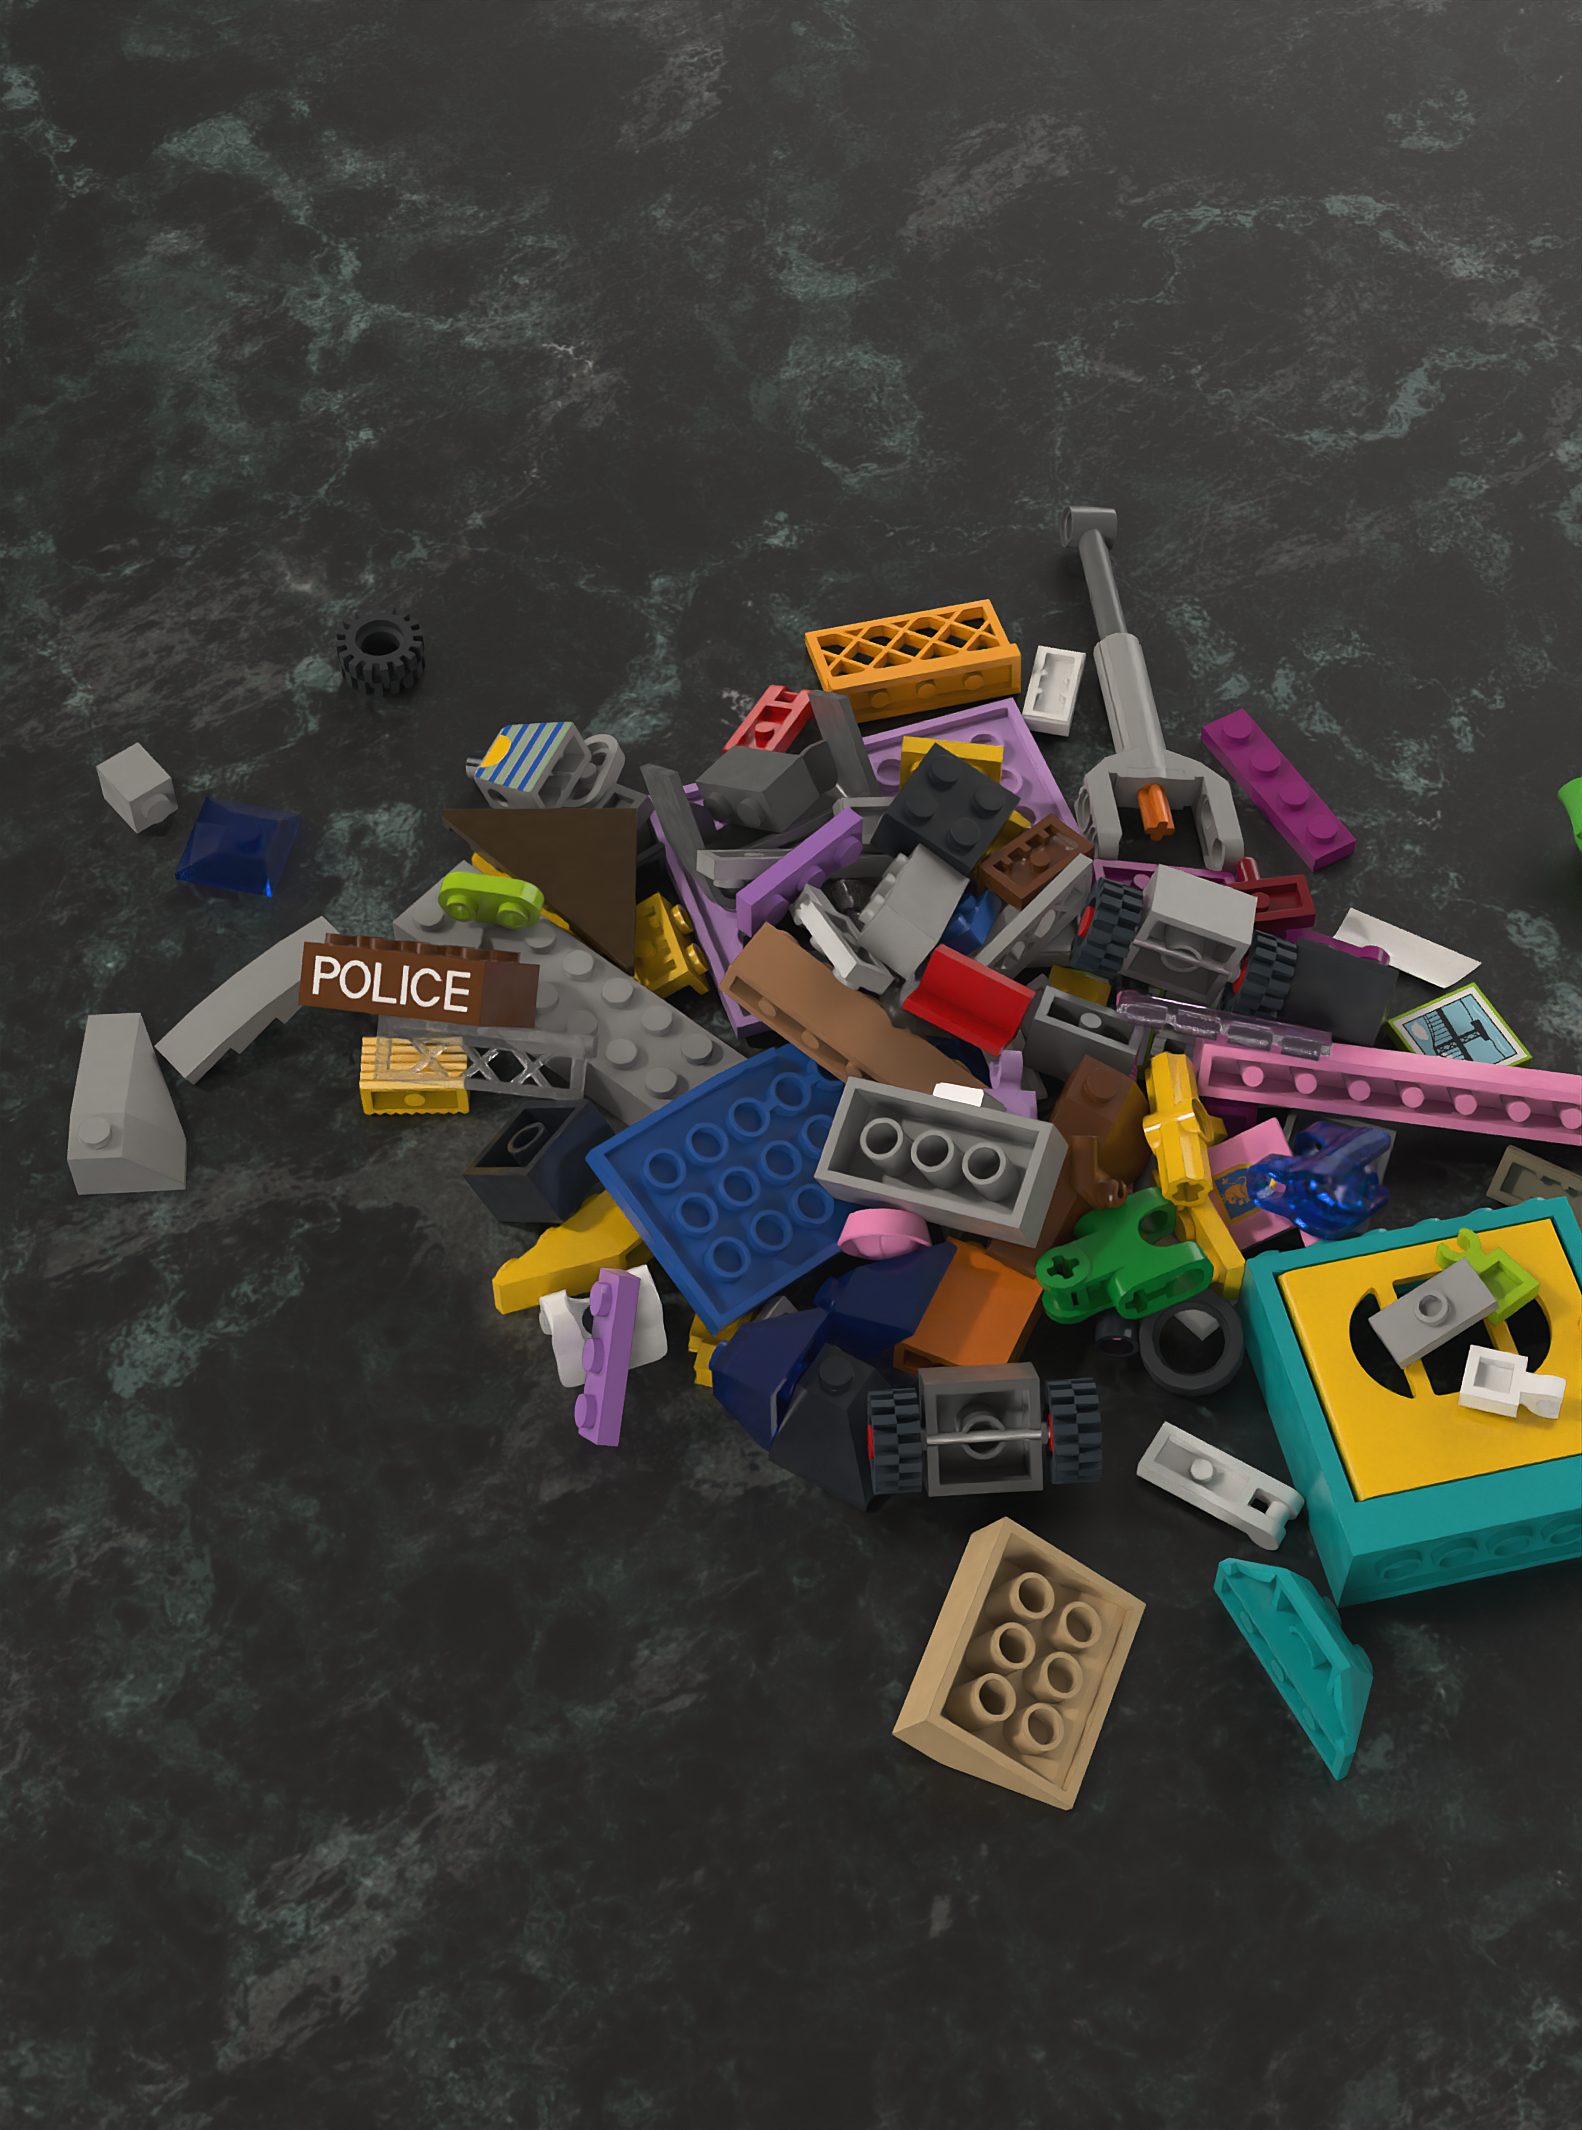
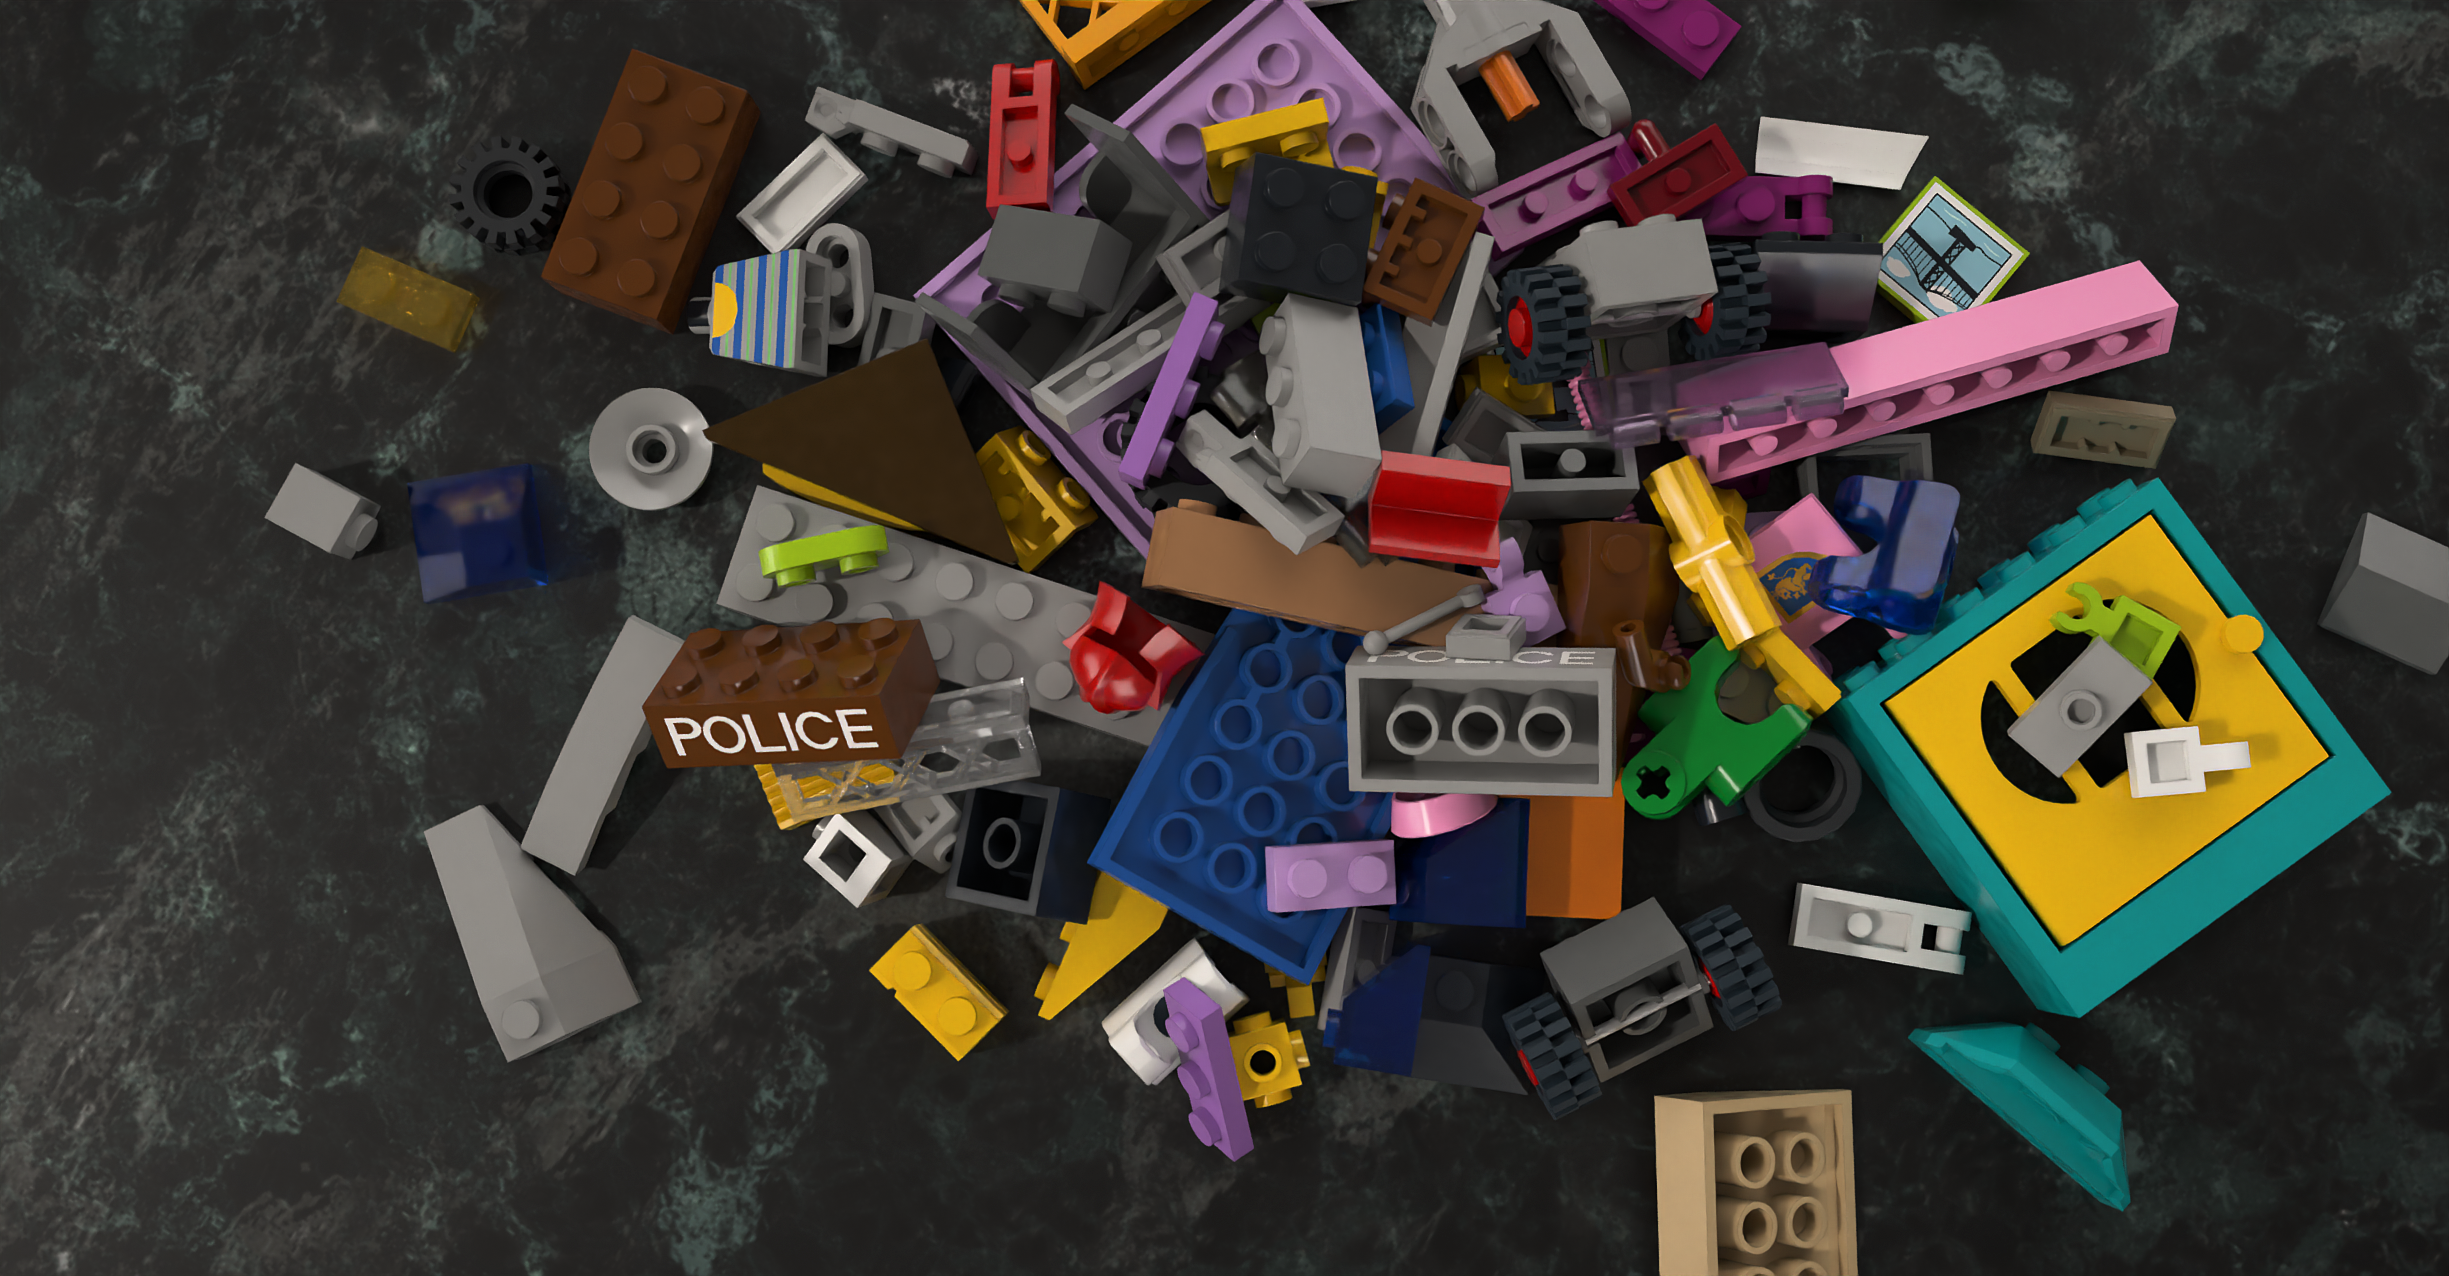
camera: 20 degrees left, 30 degrees up
(272, 690) = (408, 299): none -> clear yellow plate
(393, 814) = (627, 431): none -> light grey dish
(410, 1136) = (841, 863): none -> light grey brick
(423, 1247) = (939, 991): none -> yellow brick
(470, 1128) = (925, 828): none -> light grey bracket
(483, 677) = (652, 191): none -> reddish brown brick
(607, 713) = (802, 196): none -> white tile
(658, 1386) = (1260, 1033): none -> yellow brick
(679, 698) = (889, 131): none -> light grey hinge
(685, 1036) = (1126, 655): none -> red helmet
(773, 1253) = (1330, 875): none -> lavender plate
(929, 1085) = (1376, 642): none -> light grey hinge

